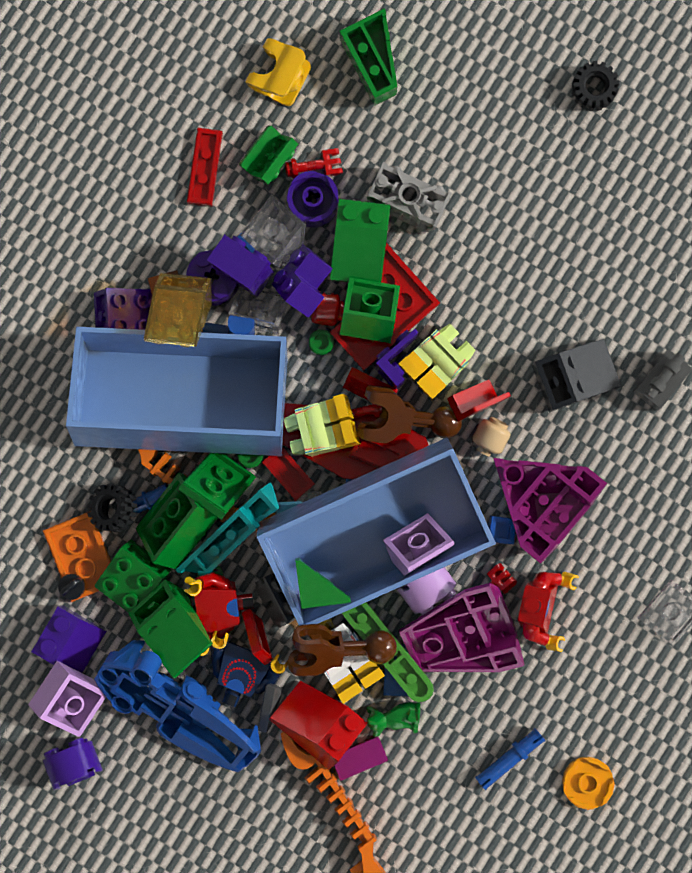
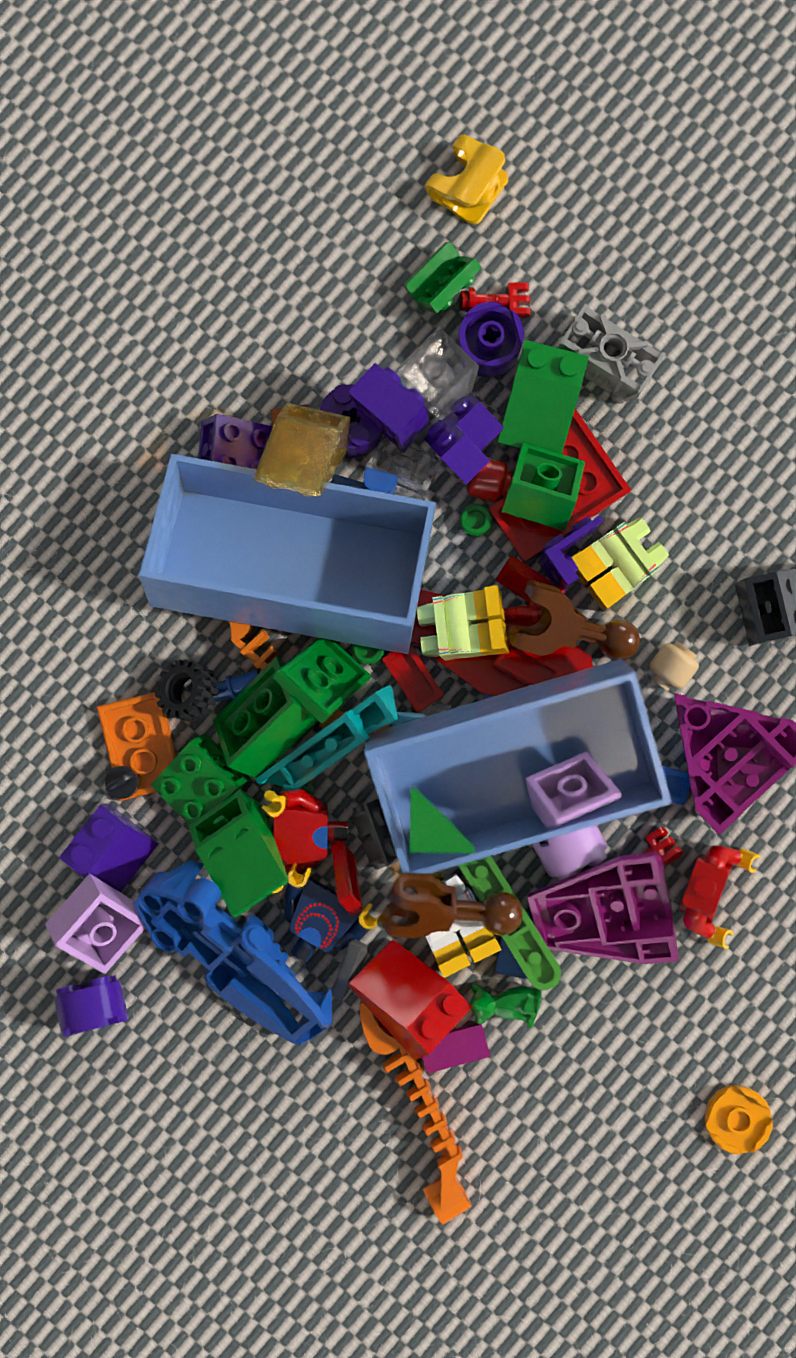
camera: 10 degrees right, 0 degrees up
(204, 167) = (360, 285): red tile -> none
(371, 55) = (586, 172): green wedge -> none
(475, 400) = (660, 617): panel -> none
(510, 758) = (645, 1075): blue pin -> none

